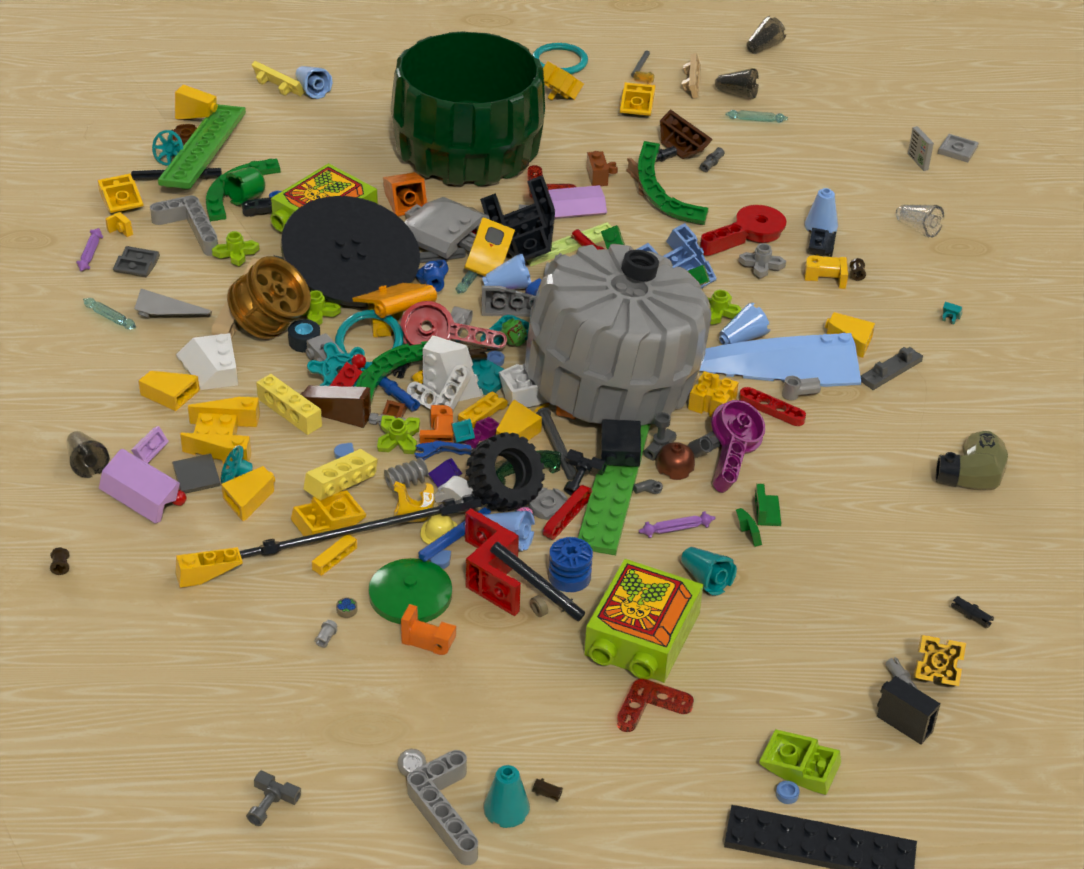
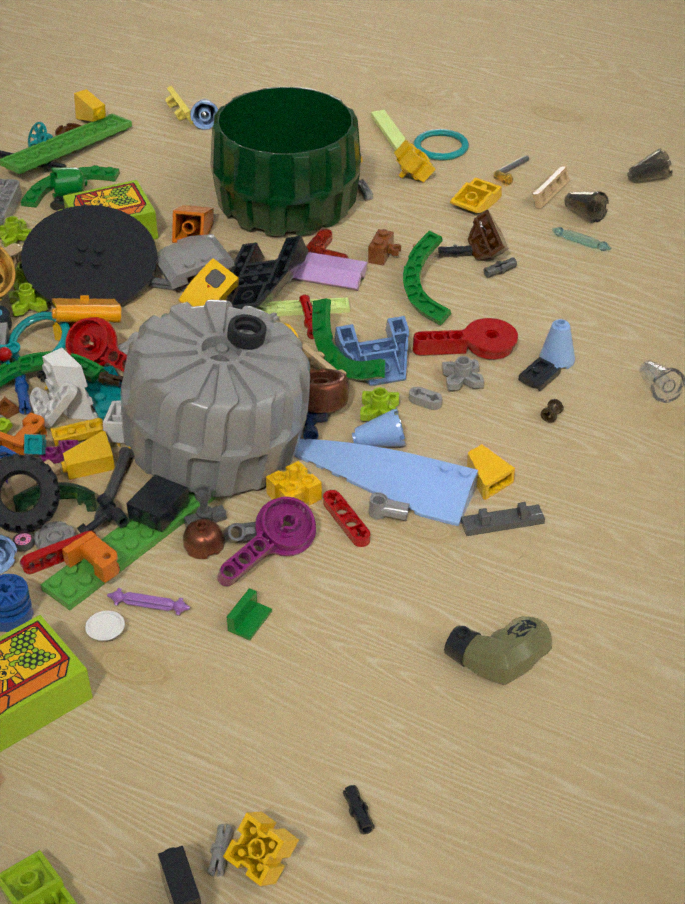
camera: 30 degrees right, 0 degrees up
(433, 274) = (146, 300): blue piece -> none
(611, 500) = (96, 553): none -> orange piece
(649, 486) = (157, 554): dark grey arm -> none
(662, 554) = (105, 625): none -> white piece
(710, 569) = (128, 659): teal cone -> none
(748, 290) = (425, 398): none -> light grey beam
(748, 523) = (210, 633): green slope -> none
(827, 267) = (519, 399): yellow piece -> none
(952, 310) = (614, 482): teal tile -> none

